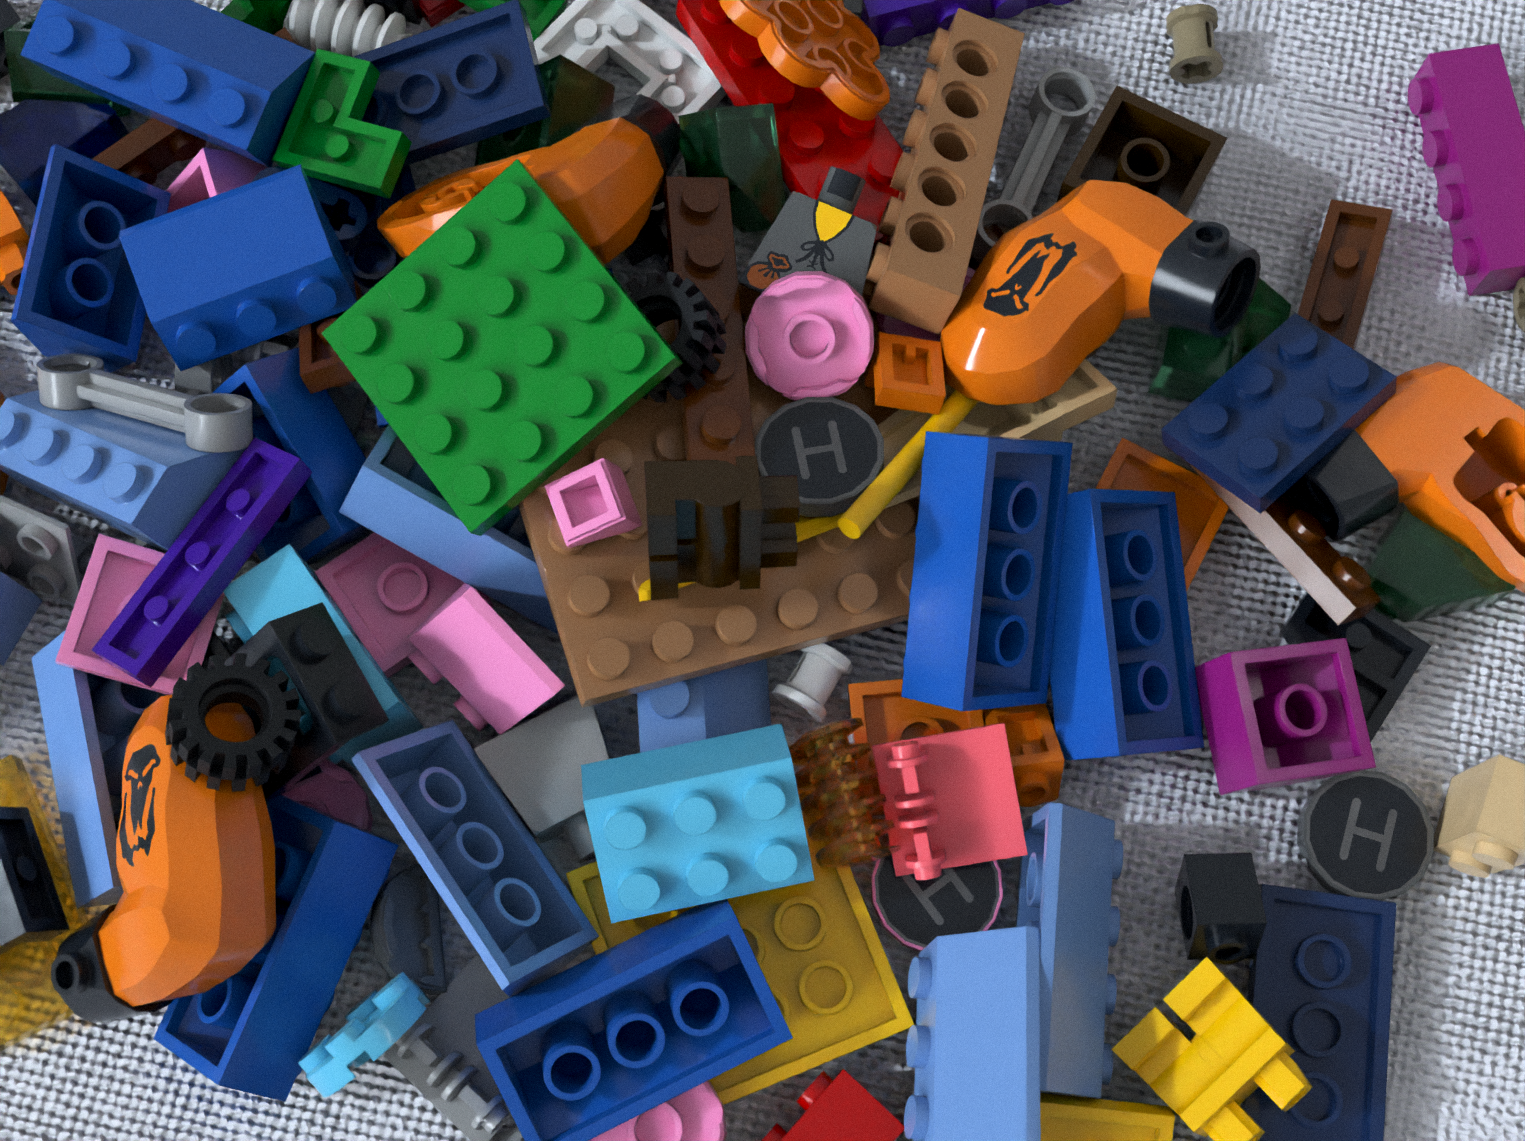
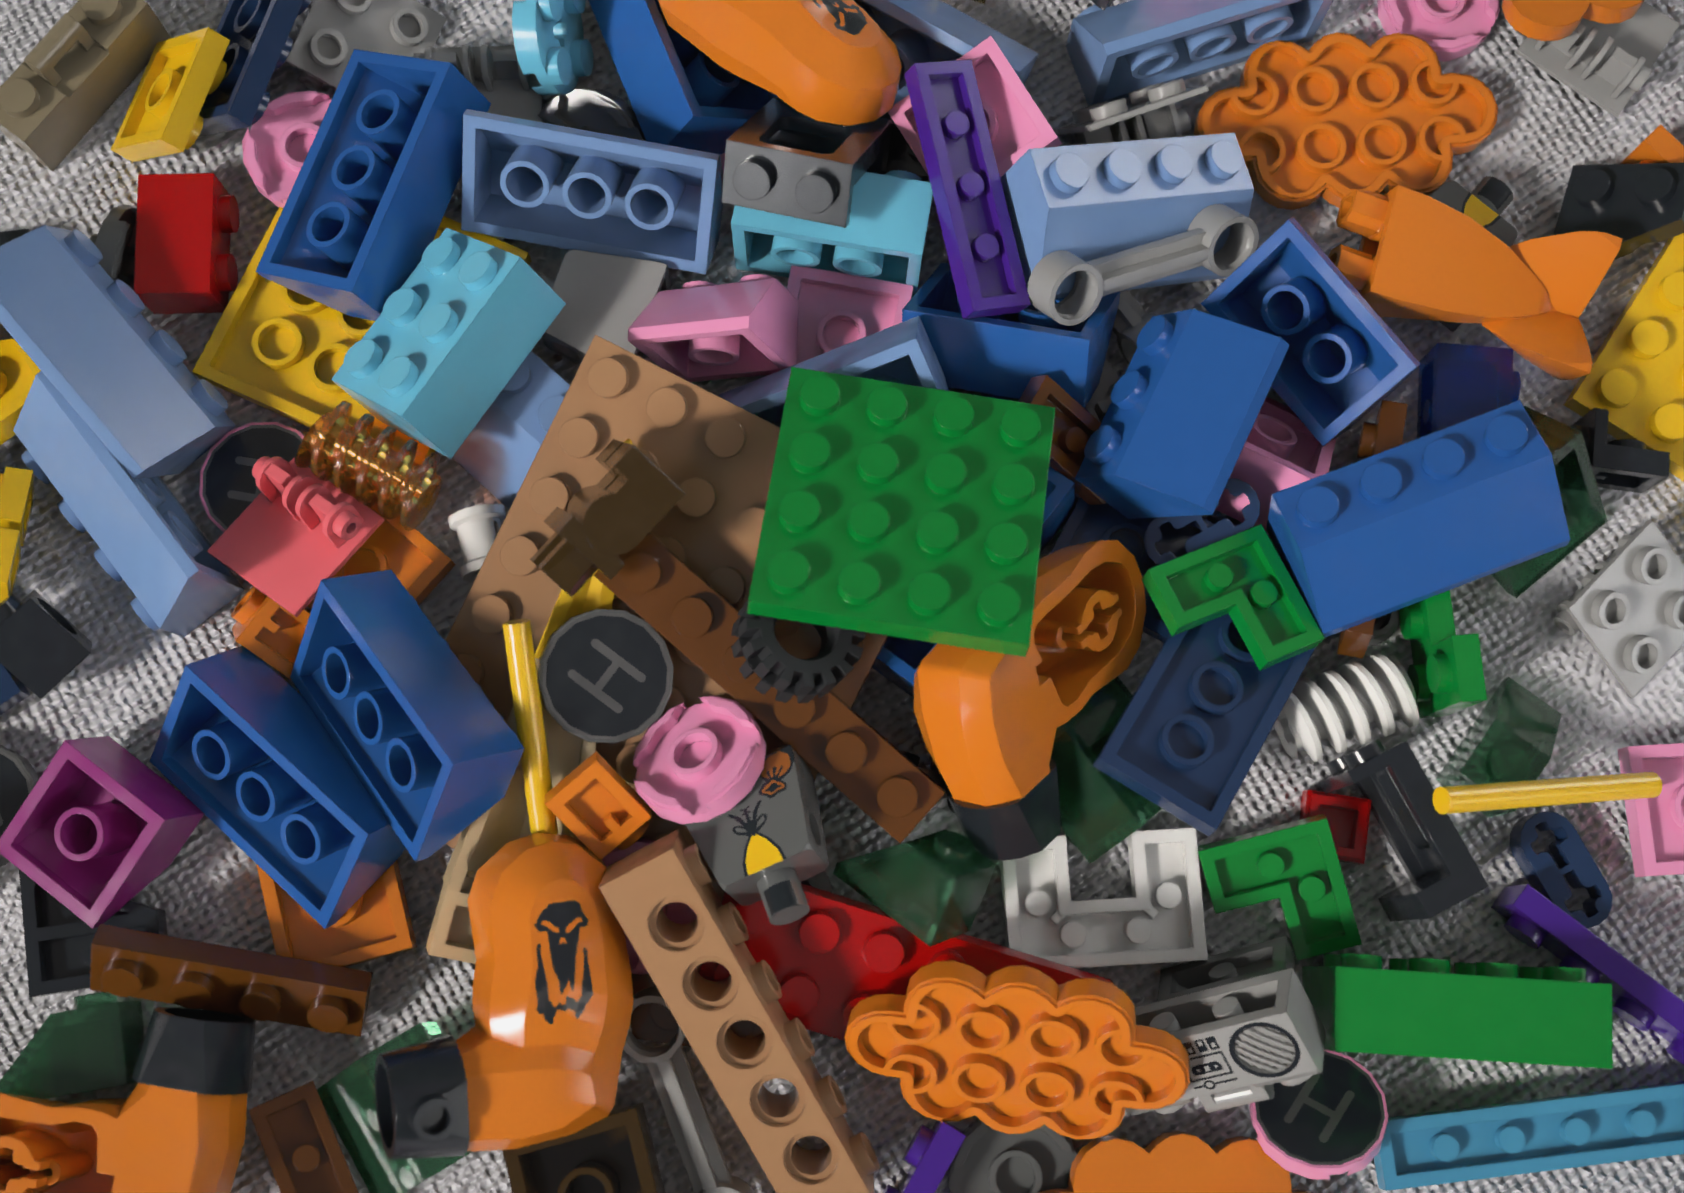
camera: 130 degrees right, 5 degrees up
(240, 685) = (769, 81): black tyre -> none
(593, 503) = (725, 471): bright pink slope -> none
(1278, 412) = (283, 1060): dark blue plate -> none

